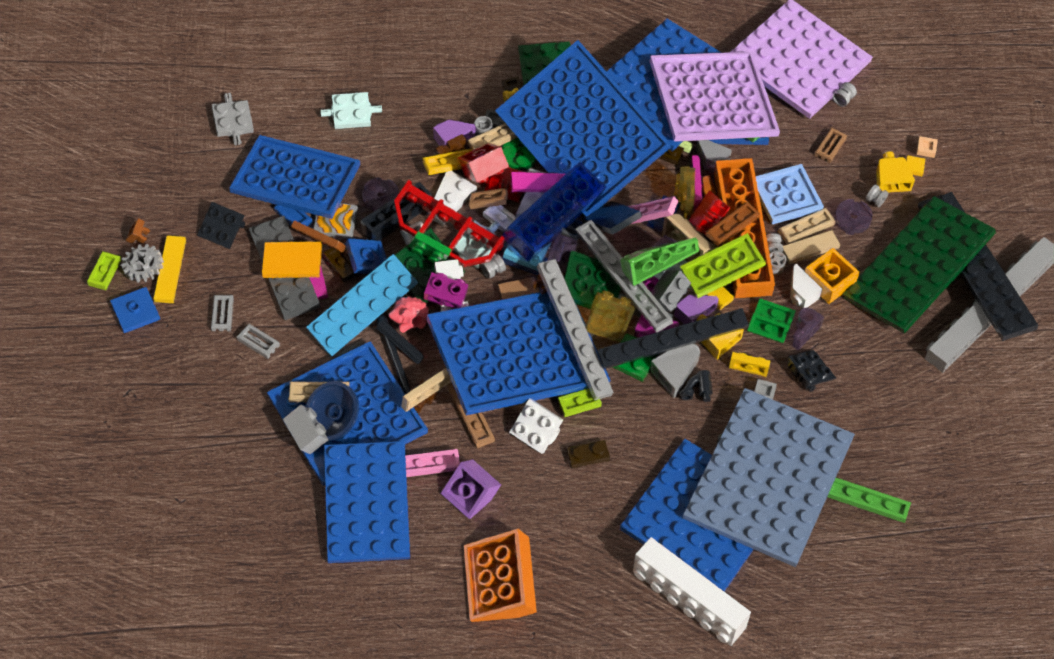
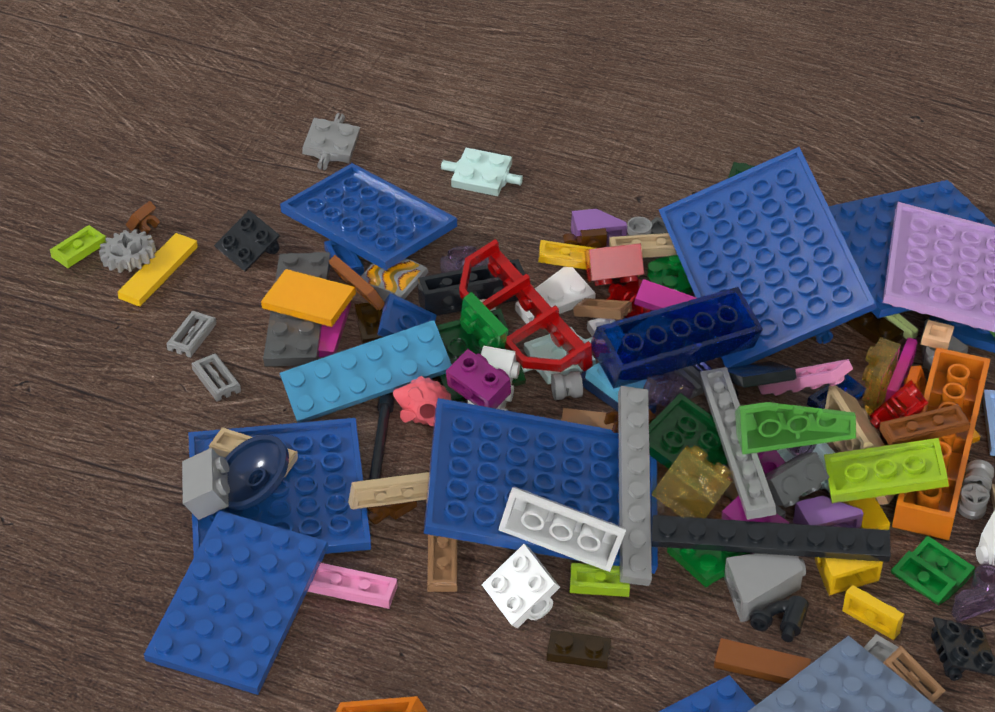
camera: 25 degrees right, 15 degrees down
(135, 310) = (88, 298): blue plate -> none
(403, 344) = (394, 431): black axle -> none
(470, 488) = (388, 632): medium lavender slope -> none
(549, 380) = (561, 529): none -> white slope
(698, 422) = (758, 661): none -> dark orange tile
(711, 149) = (937, 335): none -> light nougat plate
(791, 400) = (916, 673): none -> medium nougat tile

